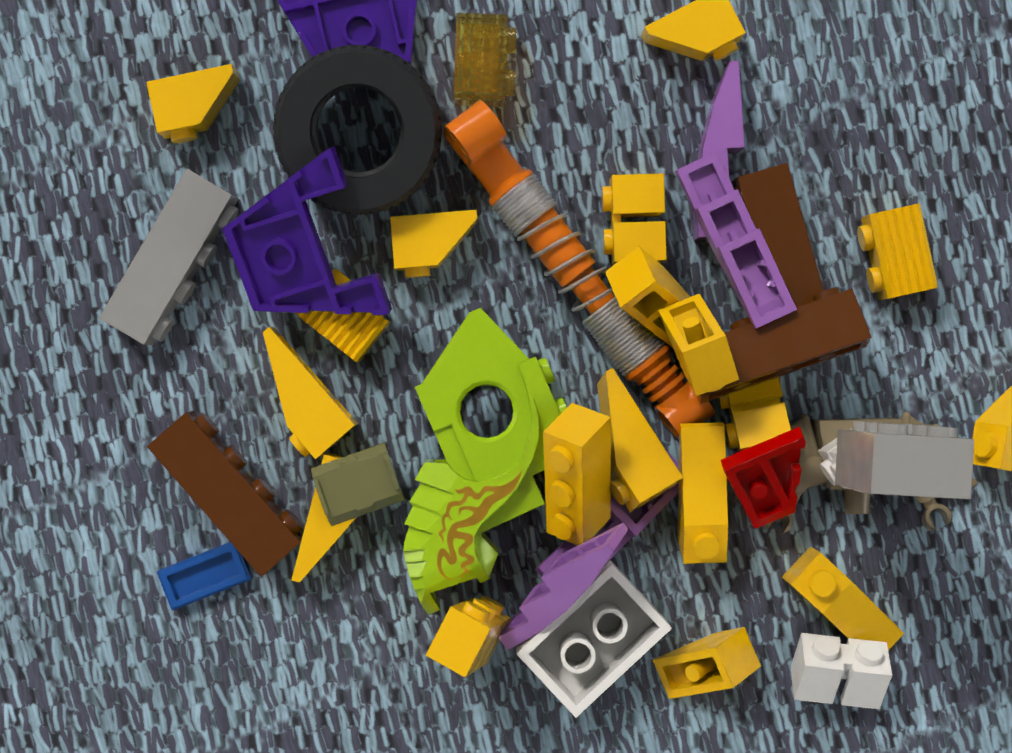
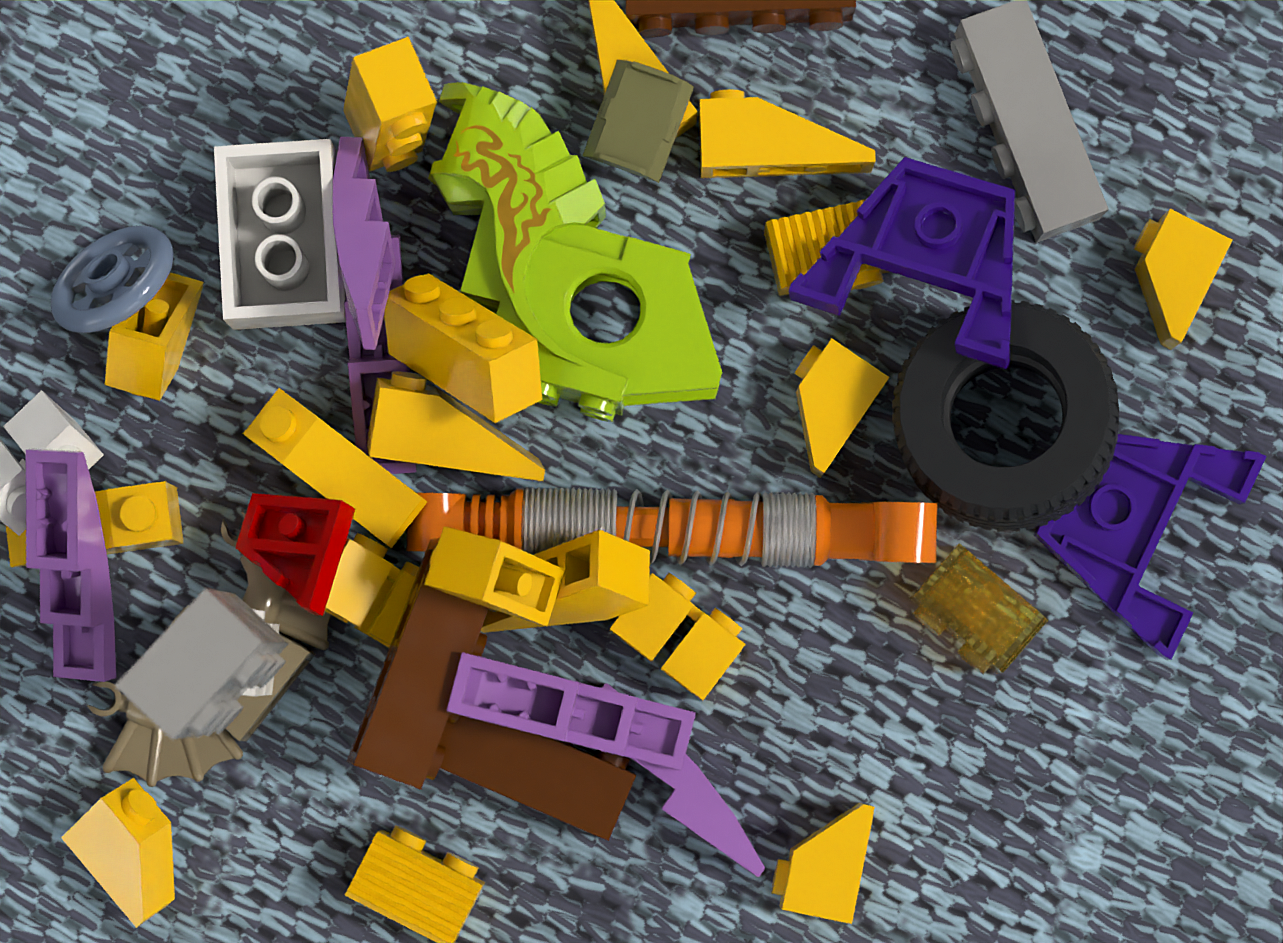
camera: 130 degrees right, 5 degrees down
(698, 714) = (111, 278): none -> sand blue plate
(876, 602) = (72, 558): none -> medium lavender slope

